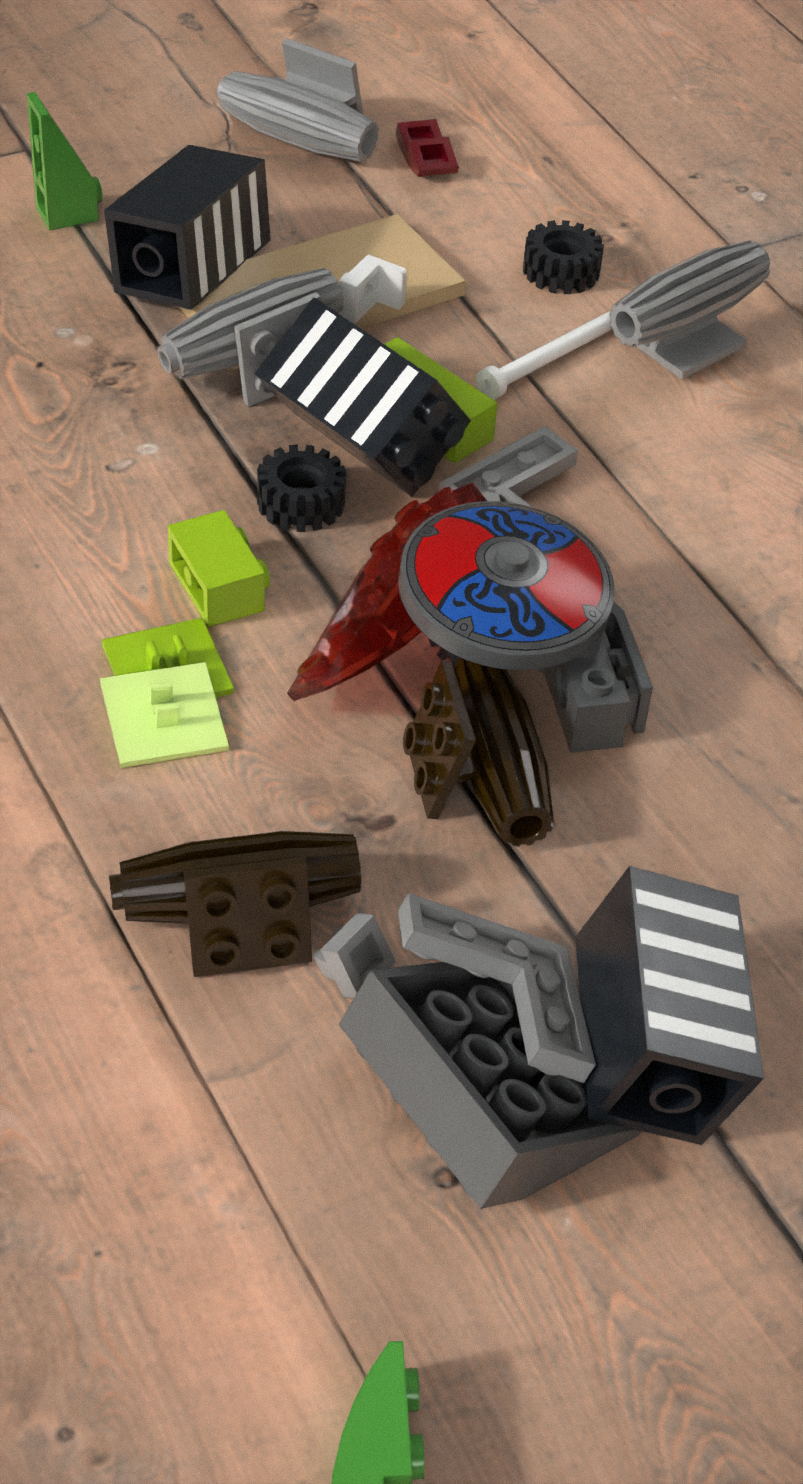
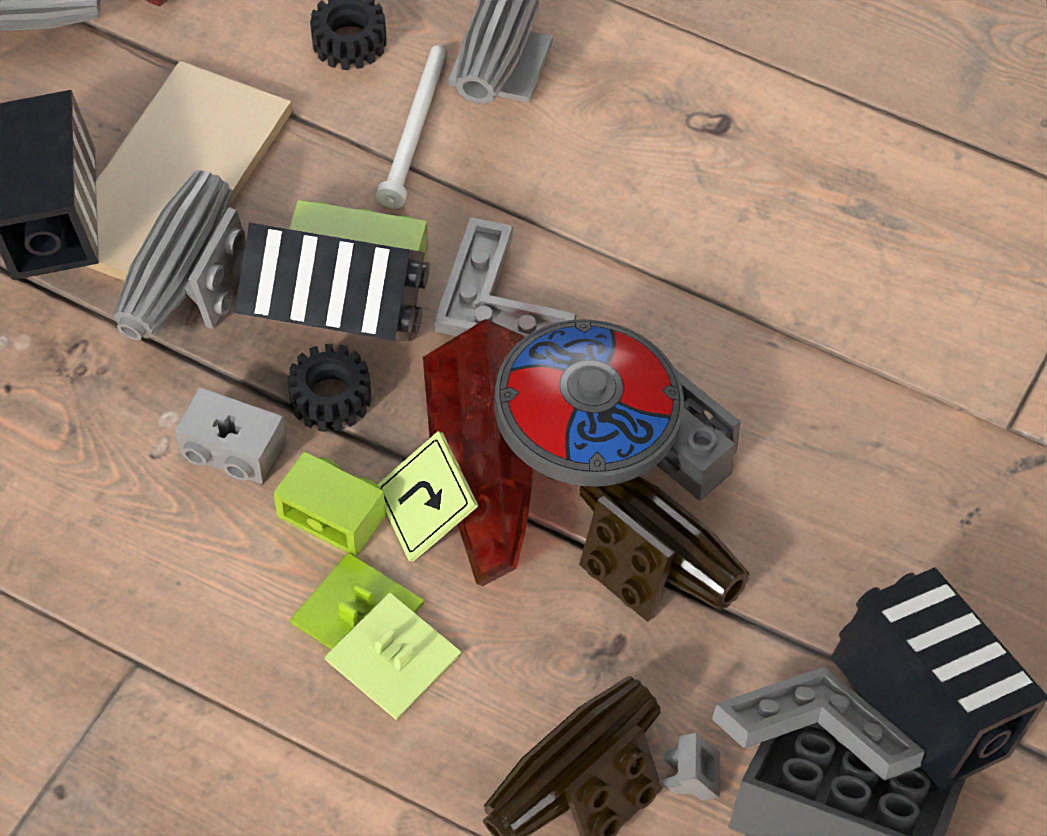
camera: 30 degrees left, 10 degrees up
(178, 474) = (230, 436): none -> light grey brick
(304, 602) = (426, 496): none -> yellowish green piece
(369, 283) = (236, 149): white bracket -> none

